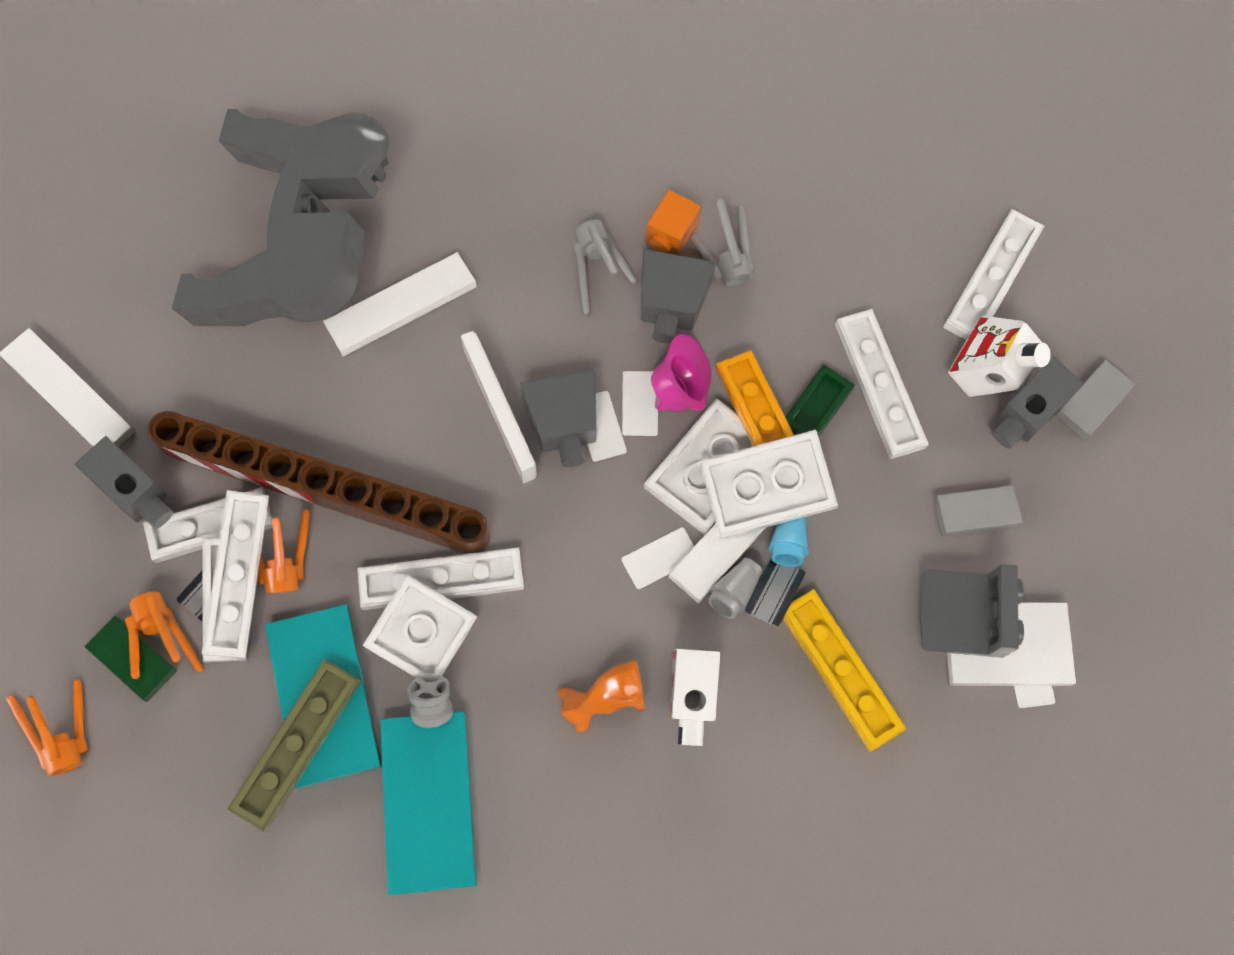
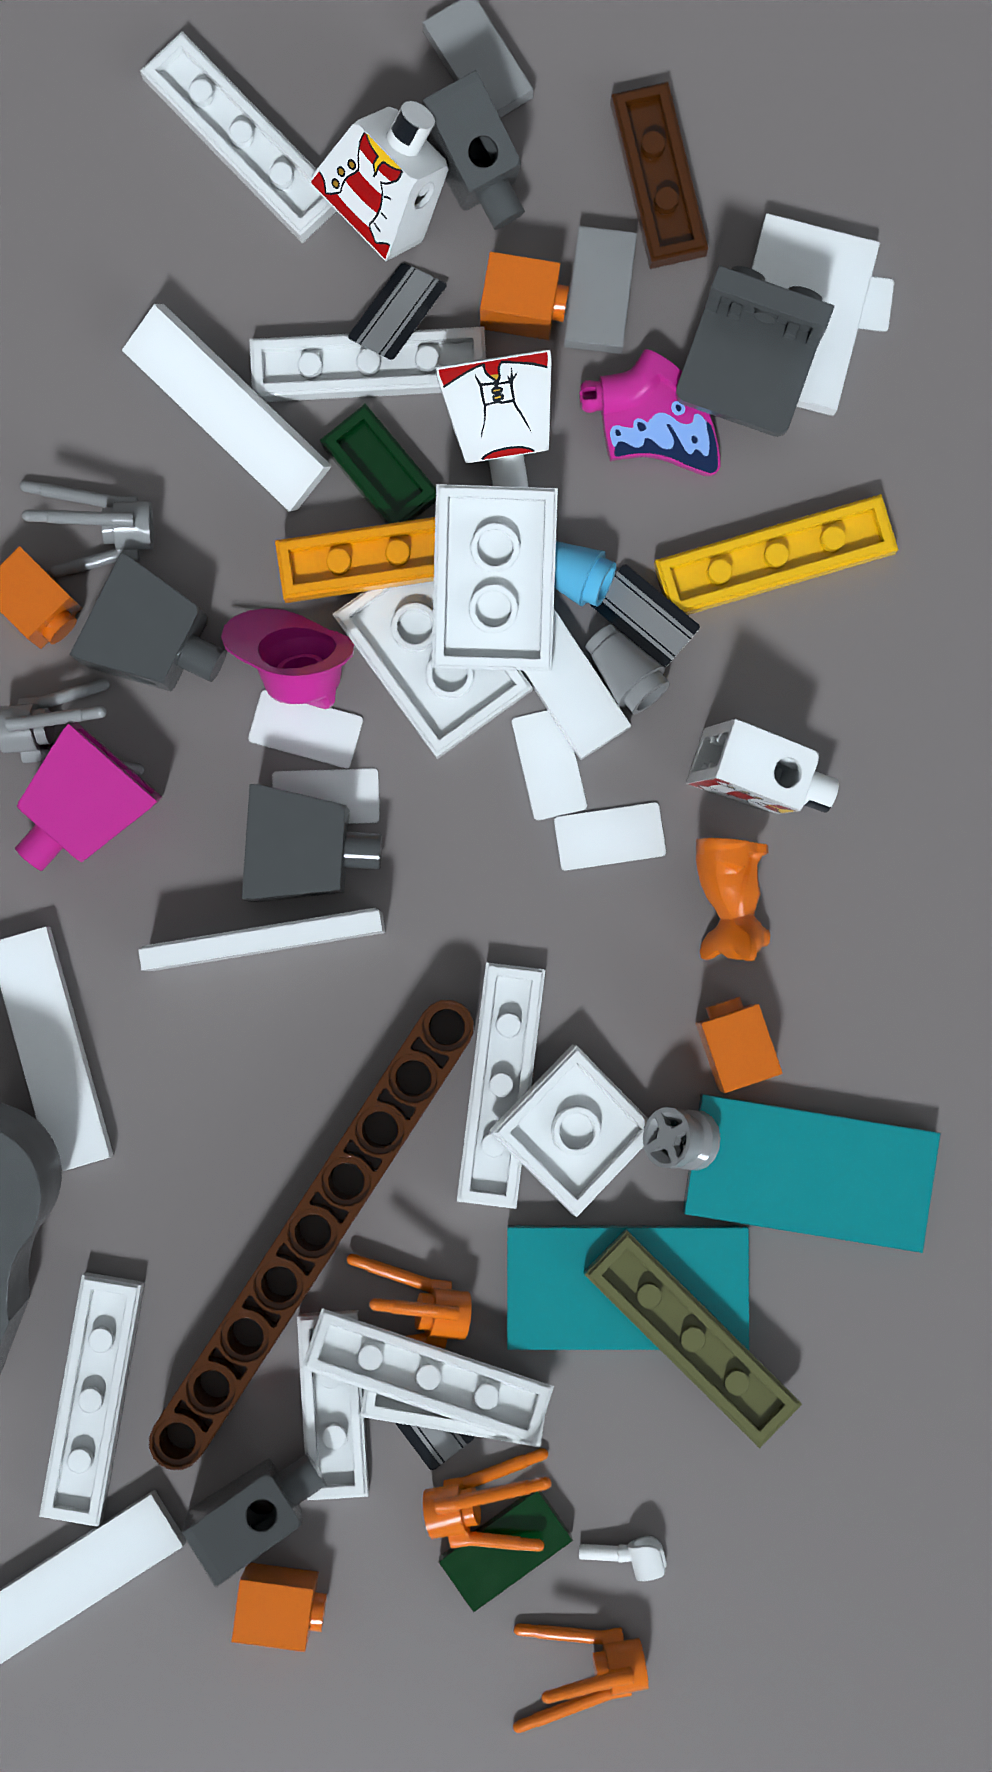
camera: 70 degrees left, 15 degrees up
(69, 519) = (278, 1607): none -> orange brick
(141, 753) = (644, 1553): none -> white hand
(186, 380) = (92, 1399): none -> white tile
(503, 724) = (737, 1045): none -> orange brick
(559, 279) = (80, 799): none -> dark pink torso
(623, 609) = (610, 836): none -> white sticker
(824, 306) = (226, 407): none -> white tile
(877, 462) = (500, 410): none -> white torso
(903, 561) = (646, 418): none -> arm
(919, 390) = (397, 311): none -> sticker
(955, 460) = (522, 296): none -> orange brick
(1065, 529) = (659, 175): none -> reddish brown tile

